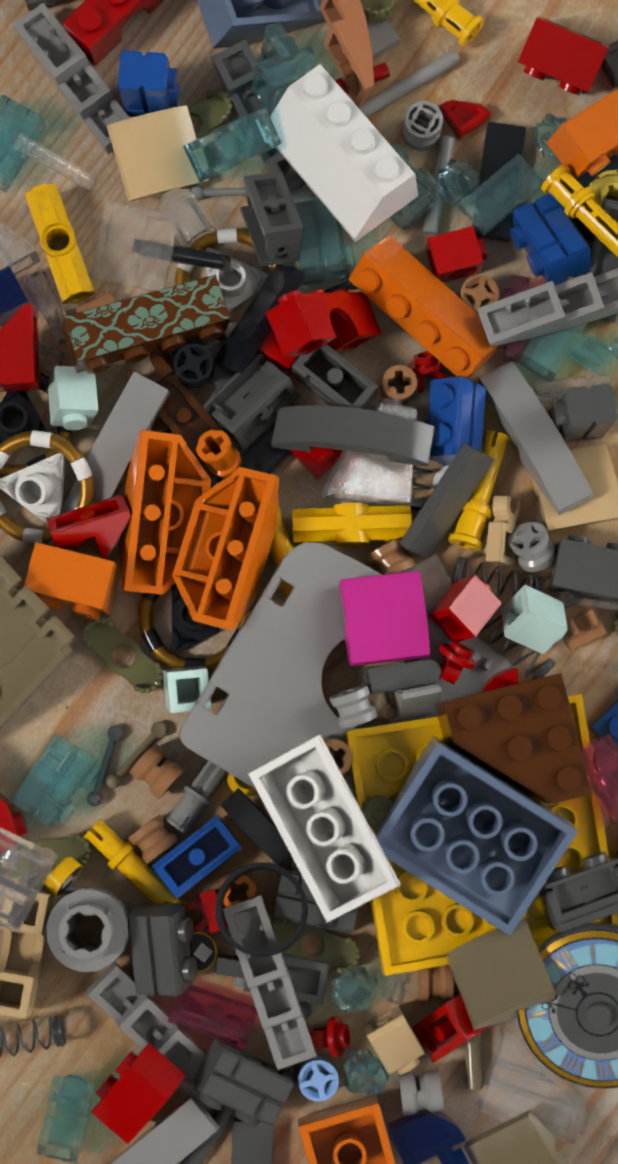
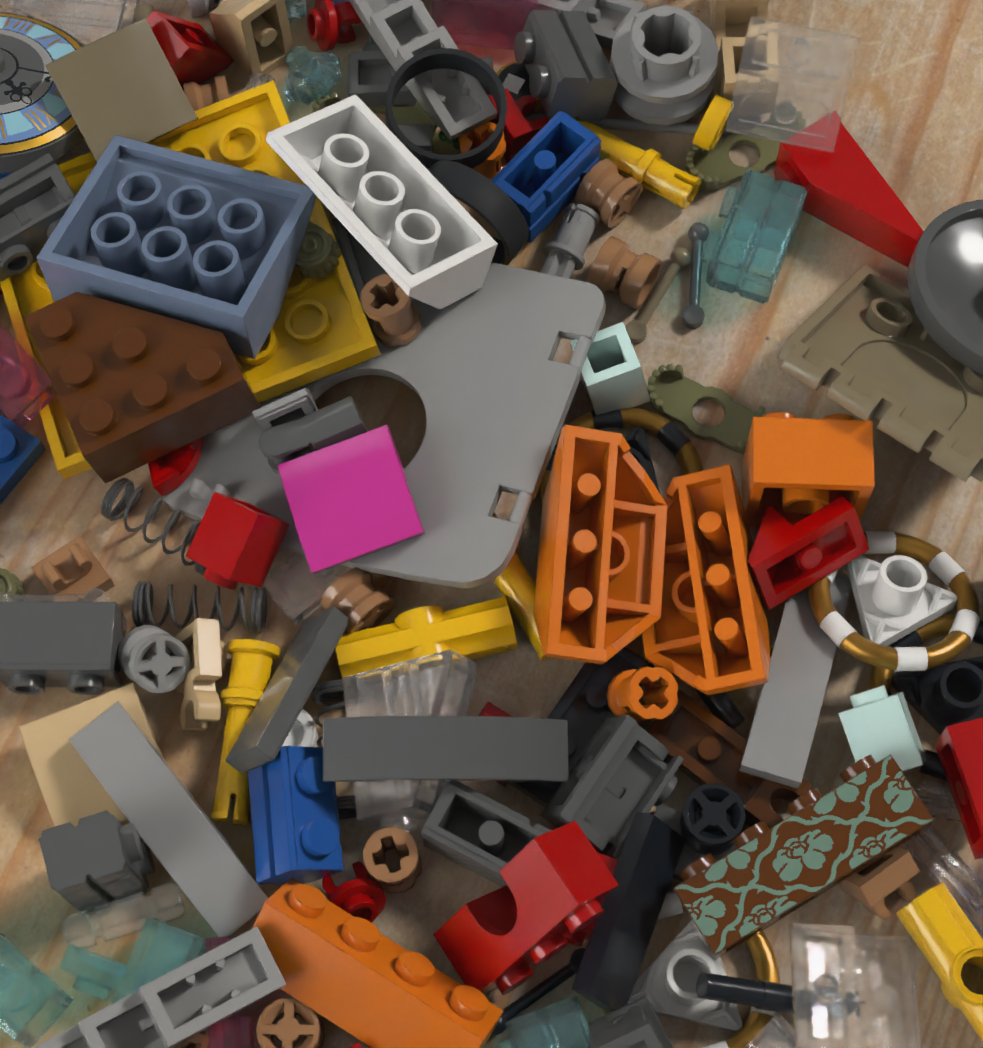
camera: 175 degrees right, 15 degrees down
(353, 706) = (372, 375): light grey wheel -> none
(454, 659) = (238, 470): red plate -> none
(534, 619) = (136, 552): light aqua brick -> none

